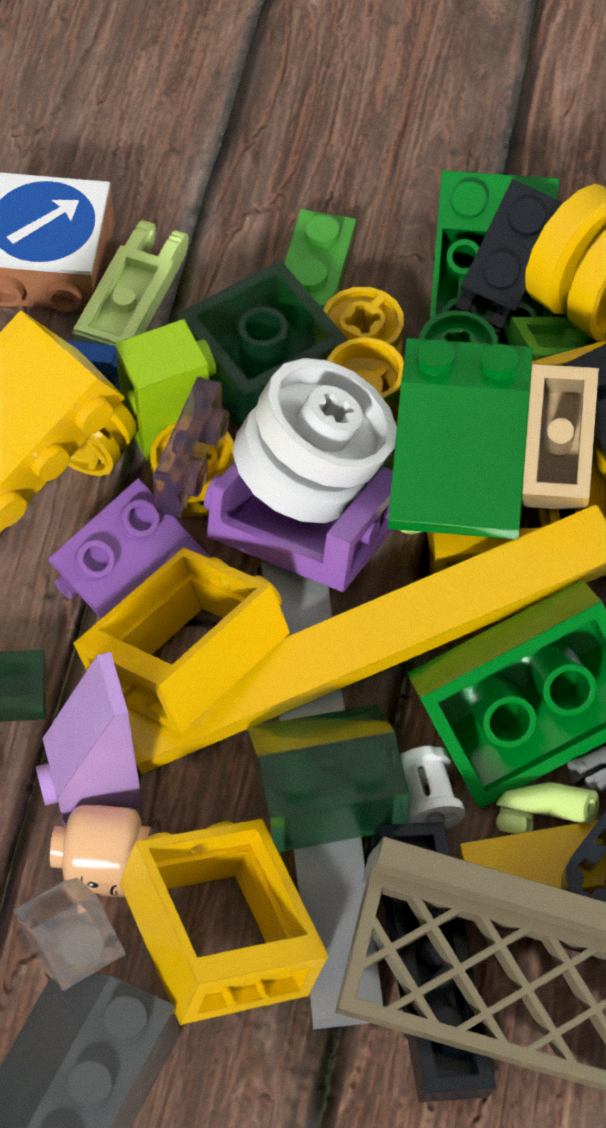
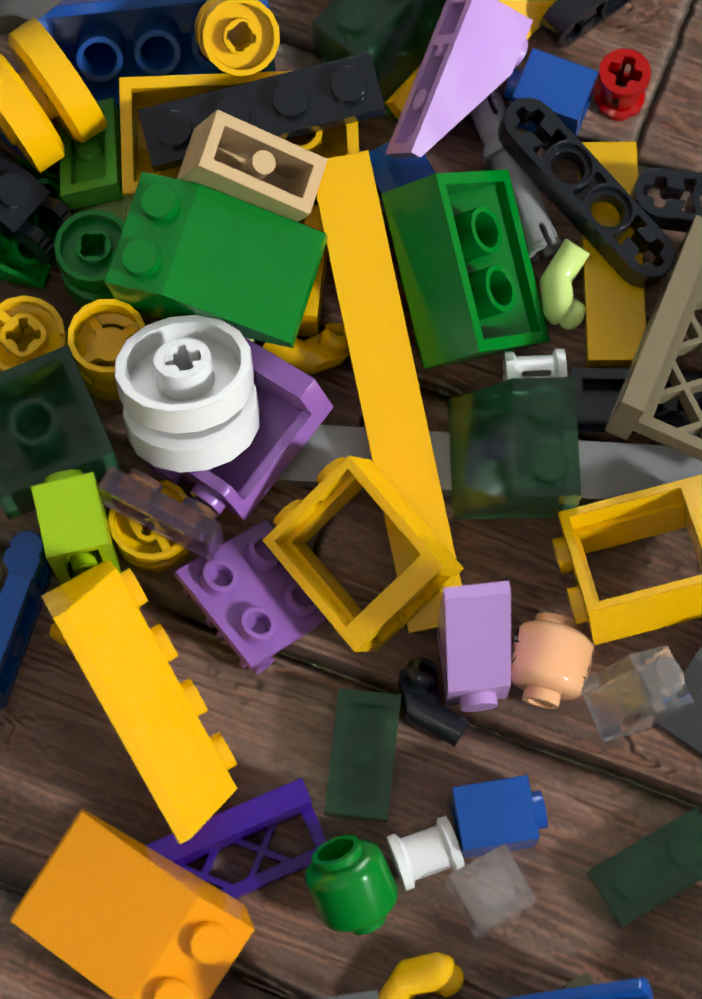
camera: 80 degrees left, 15 degrees up
(27, 752) = (423, 704): none -> black arm
(407, 559) = (316, 352): none -> yellow arm

